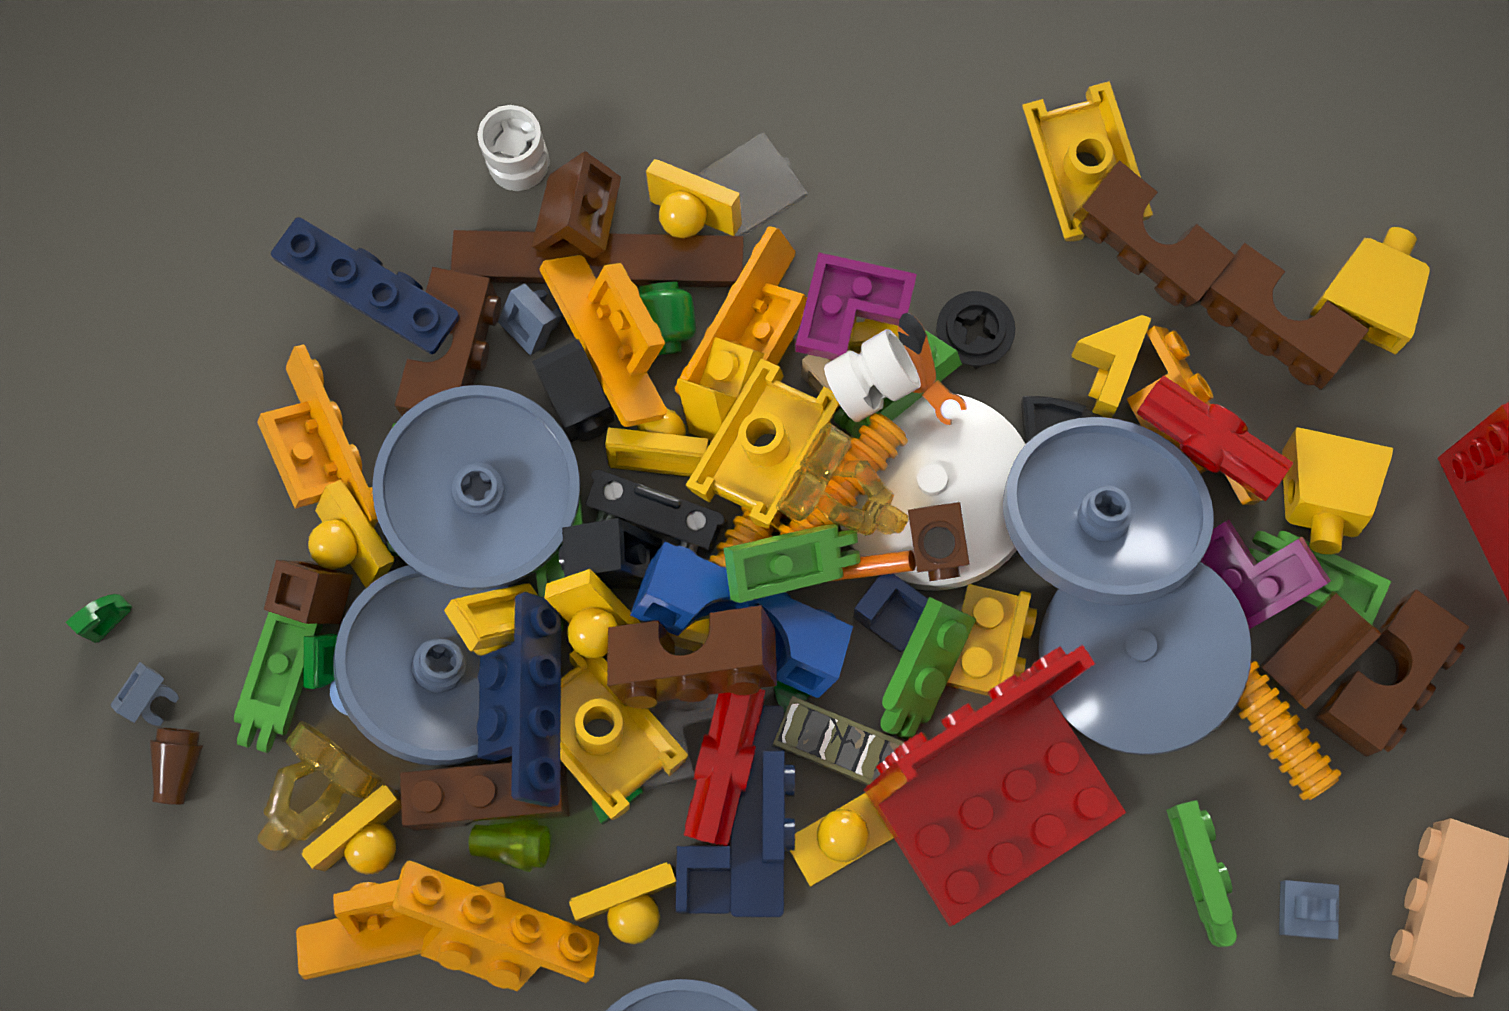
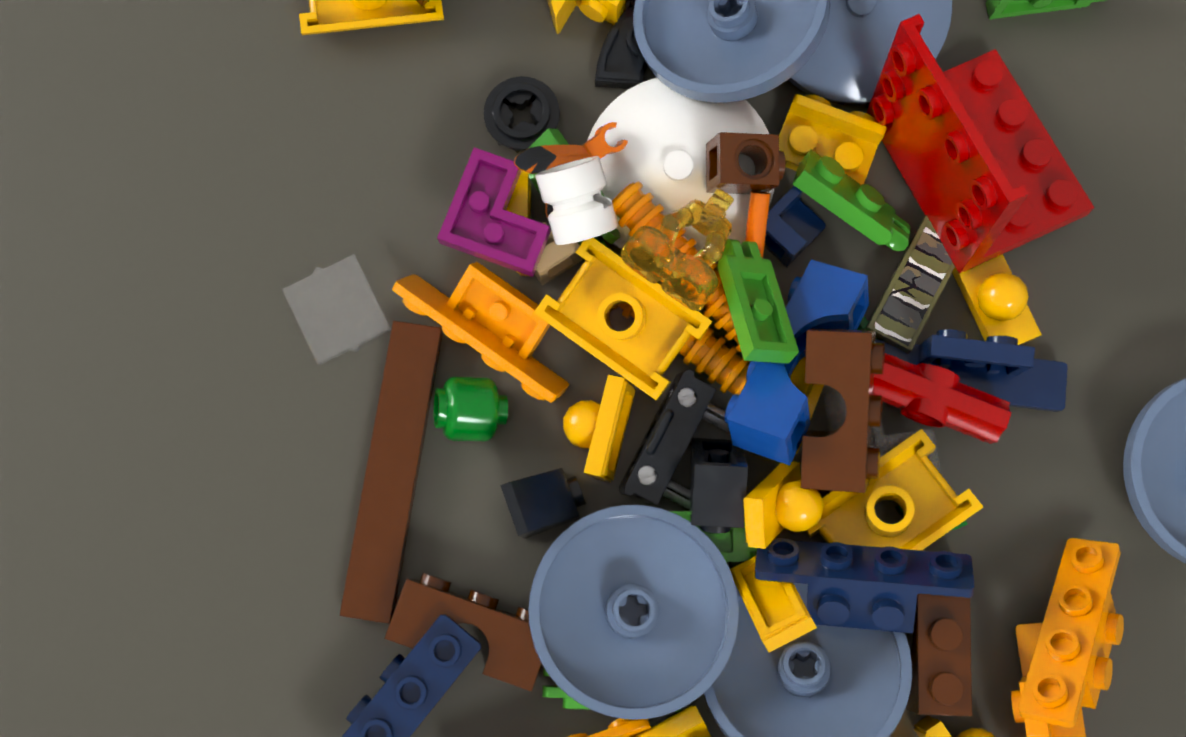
camera: 85 degrees left, 5 degrees up
(513, 147) = (260, 541): white wheel -> none
(515, 844) = (988, 610): clear neon green cone -> none
(529, 318) = (450, 544): sand blue tile -> none
(578, 205) = (336, 483): reddish brown panel -> none
(613, 331) = (482, 454): light orange bracket -> none
(630, 909) = (1046, 505): yellow tile -> none
(691, 201) = (351, 365): yellow tile -> none
(703, 880) = (1030, 434): dark blue panel -> none
(720, 385) = (555, 357): yellow slope -> none

